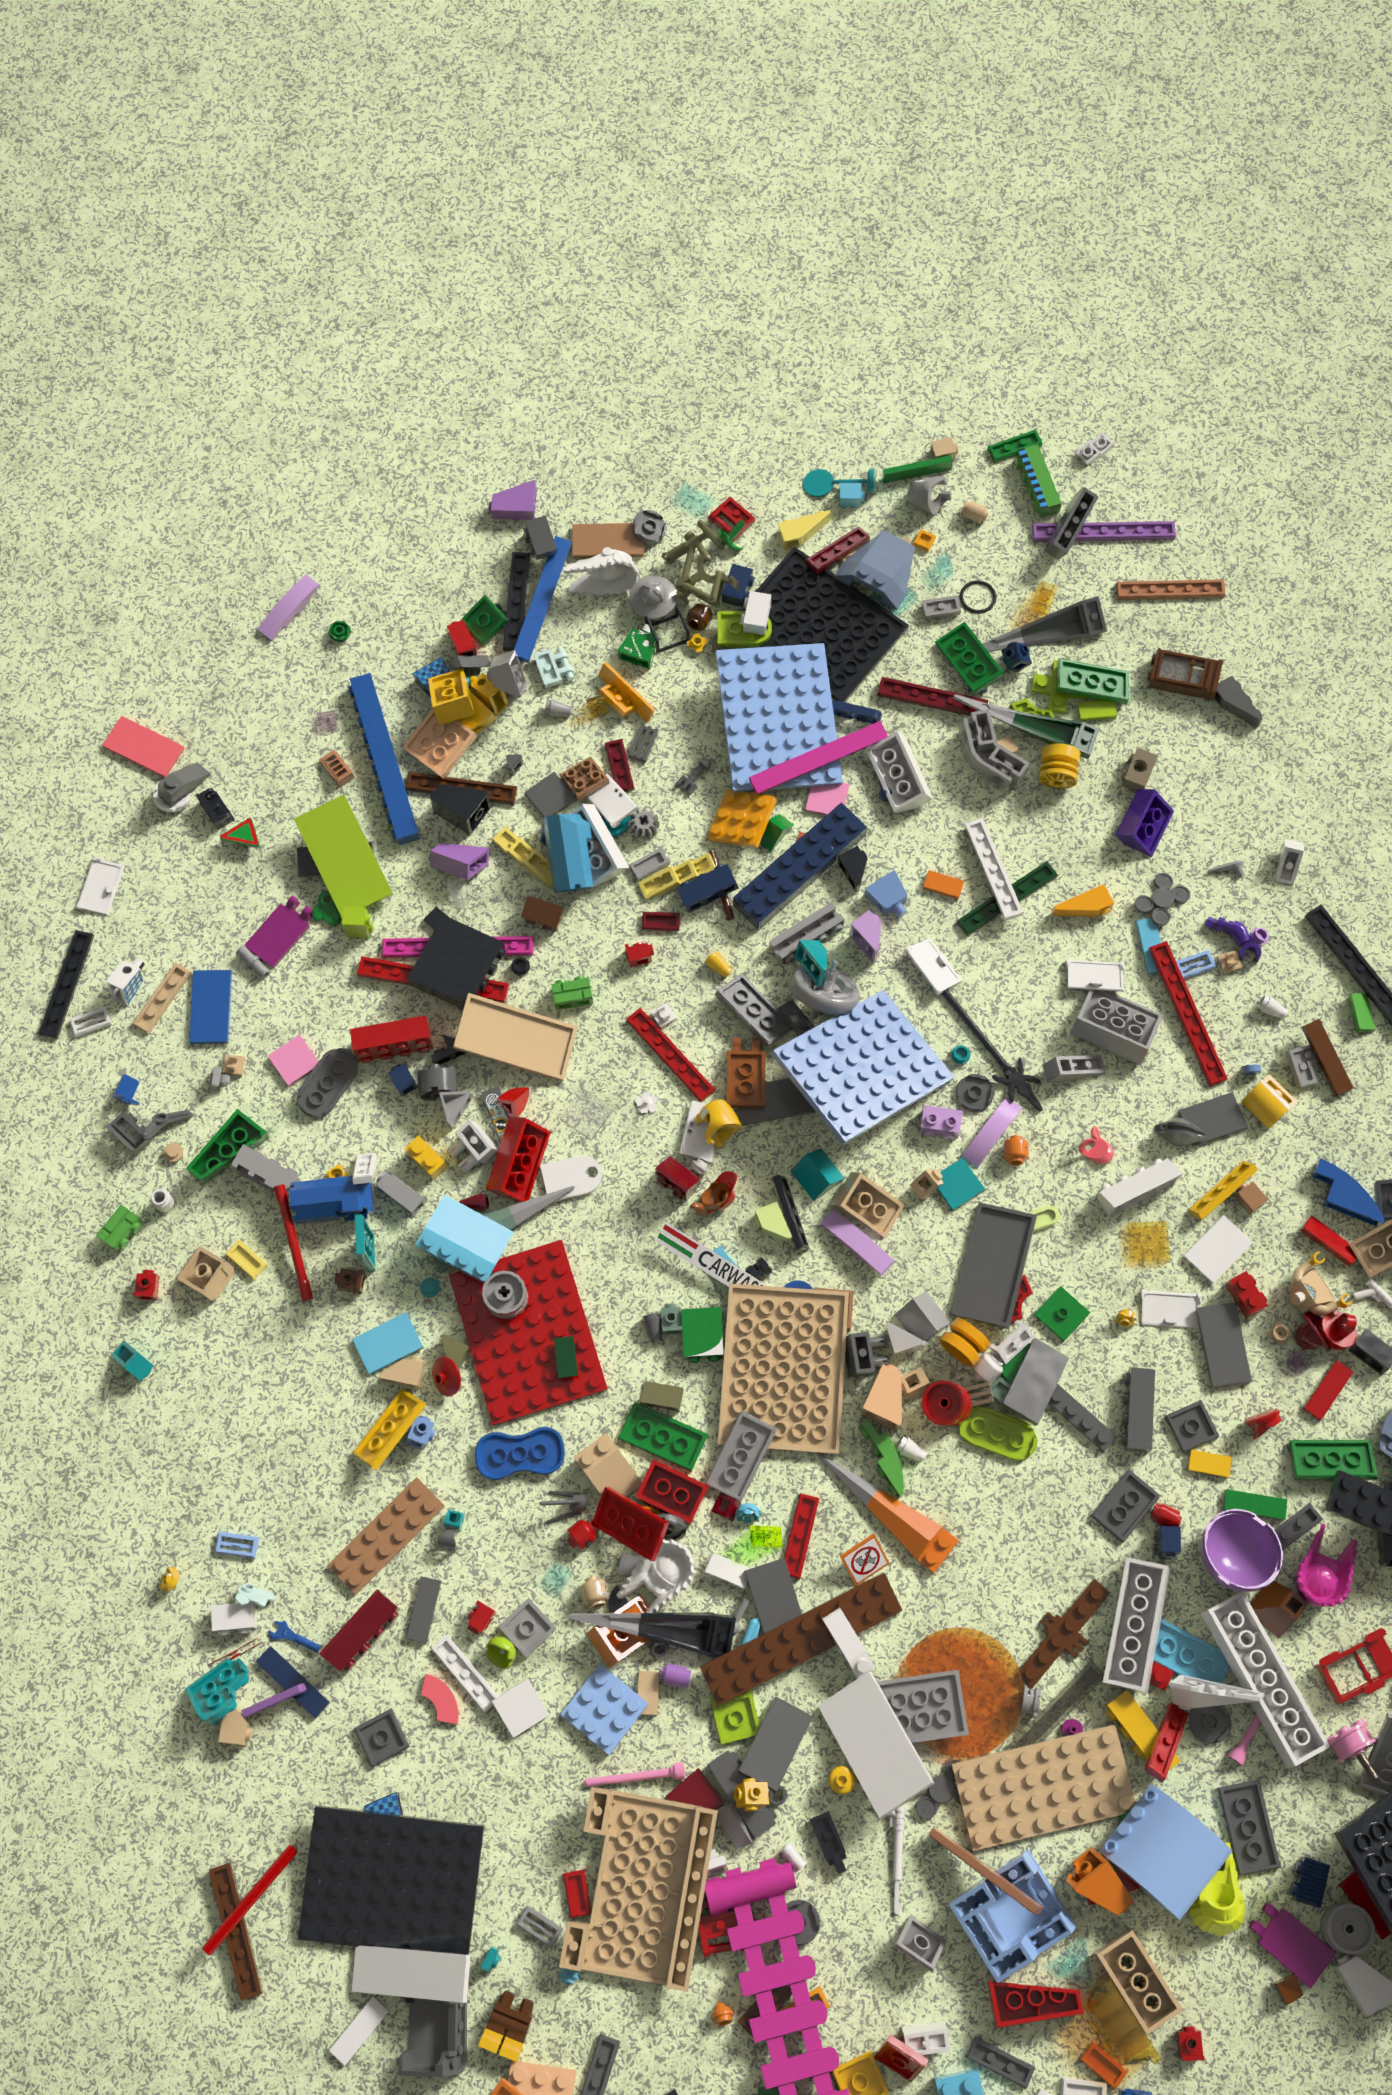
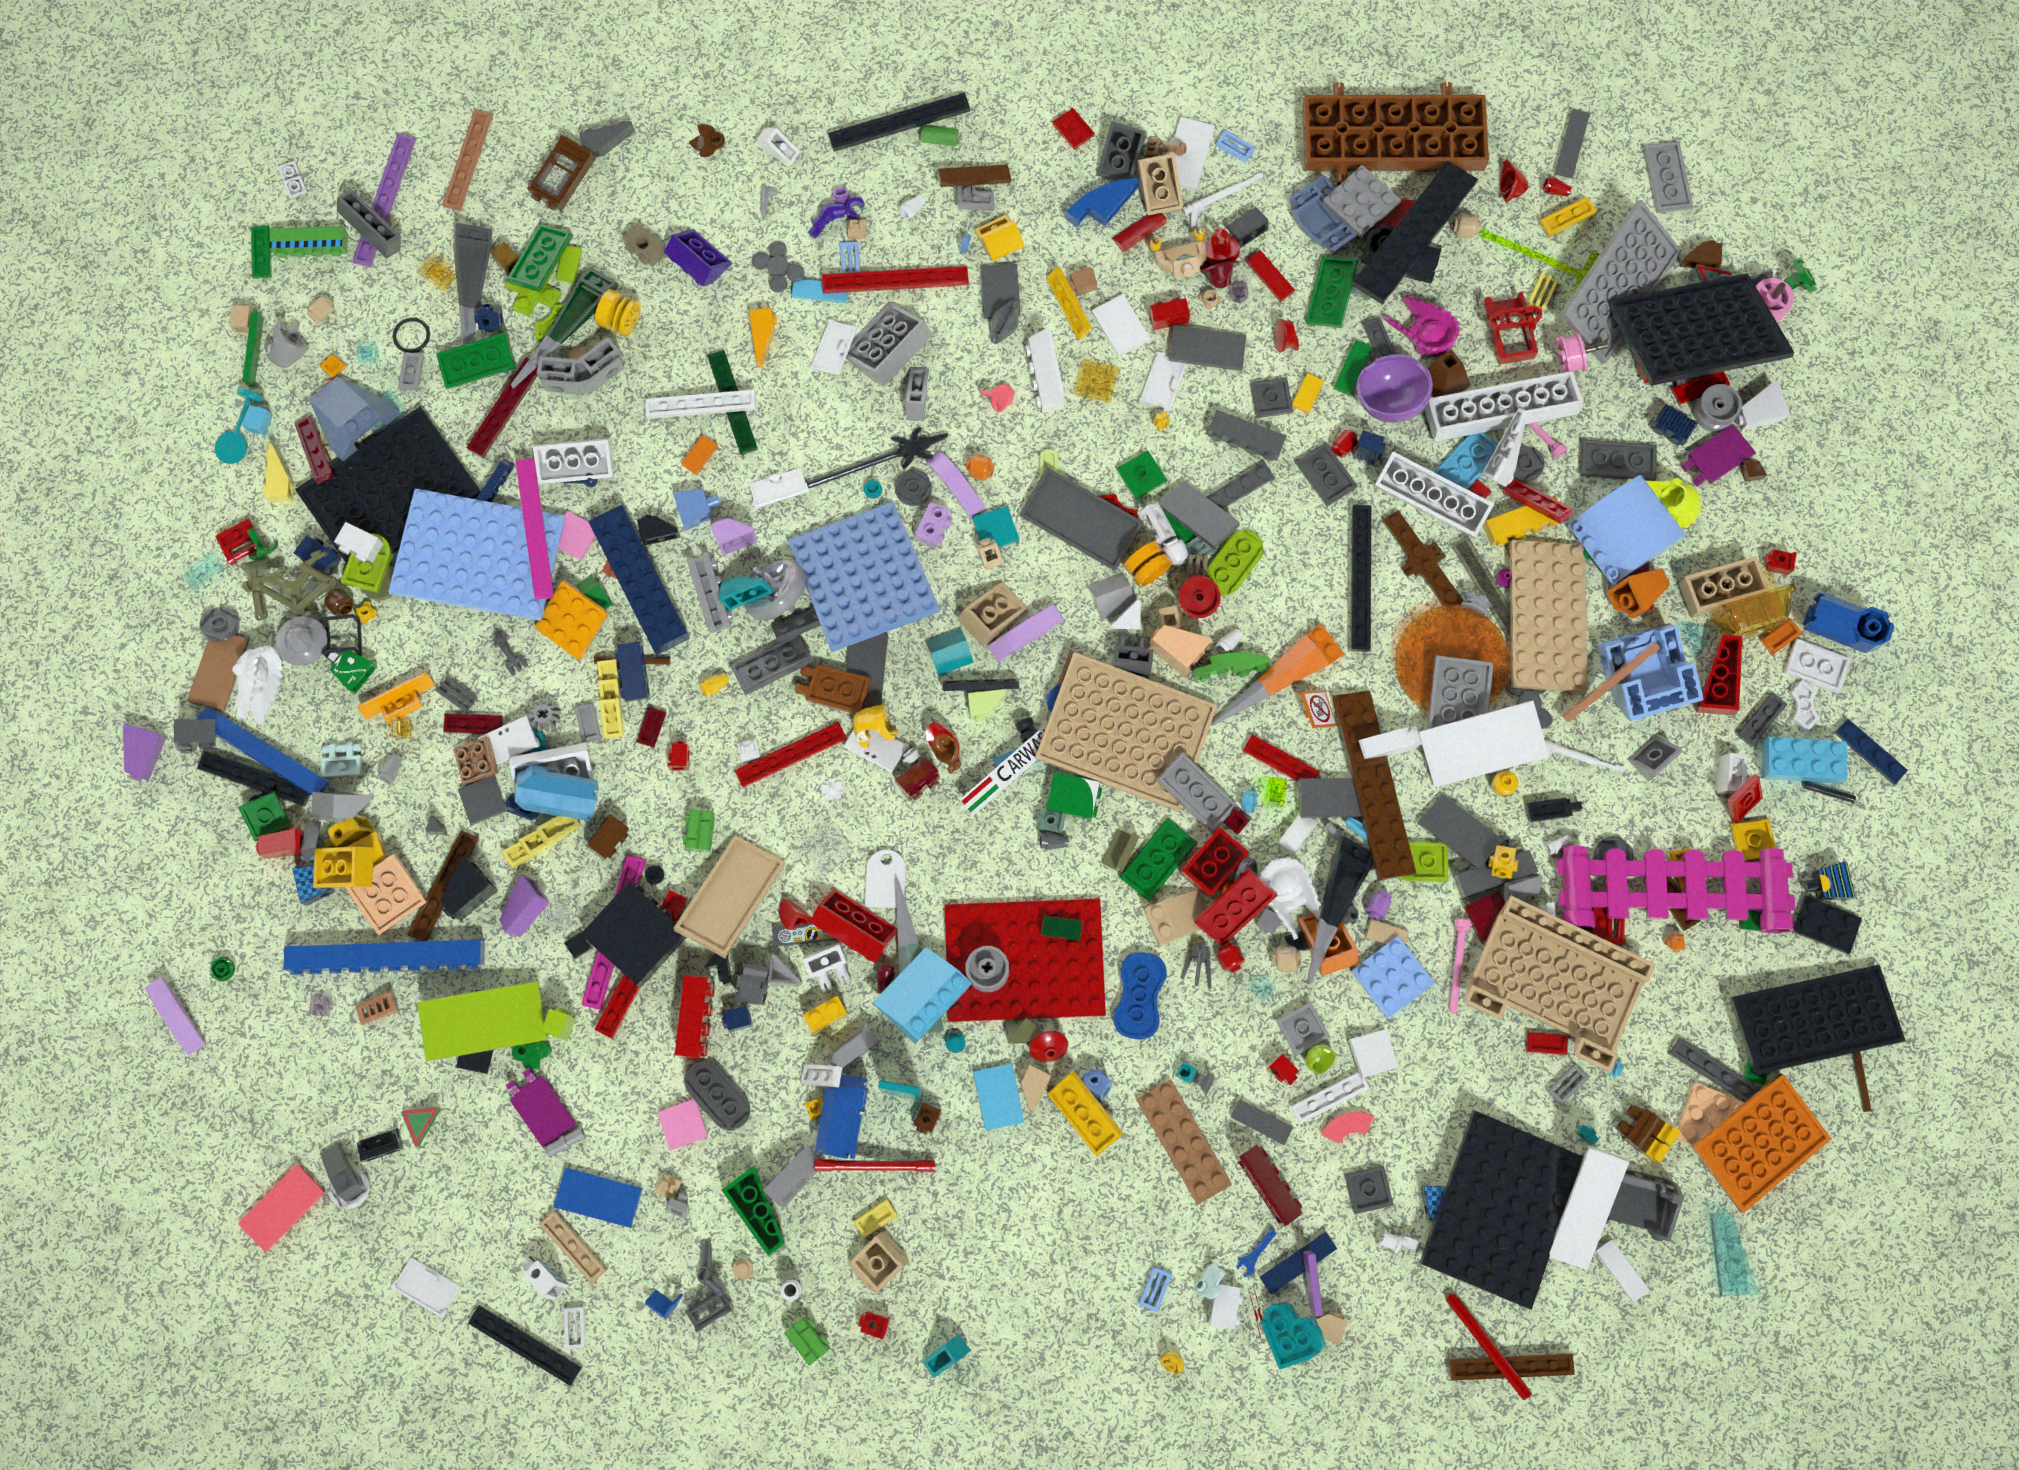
camera: 75 degrees left, 5 degrees up
(334, 1776) = (1395, 1242): none -> white connector
(1022, 1570) = (1361, 578): none -> black plate
(1082, 650) = (504, 257): none -> pearl gold brick
(1269, 793) = (705, 140): none -> reddish brown plate
(1378, 1668) = (1521, 312): none -> red beam

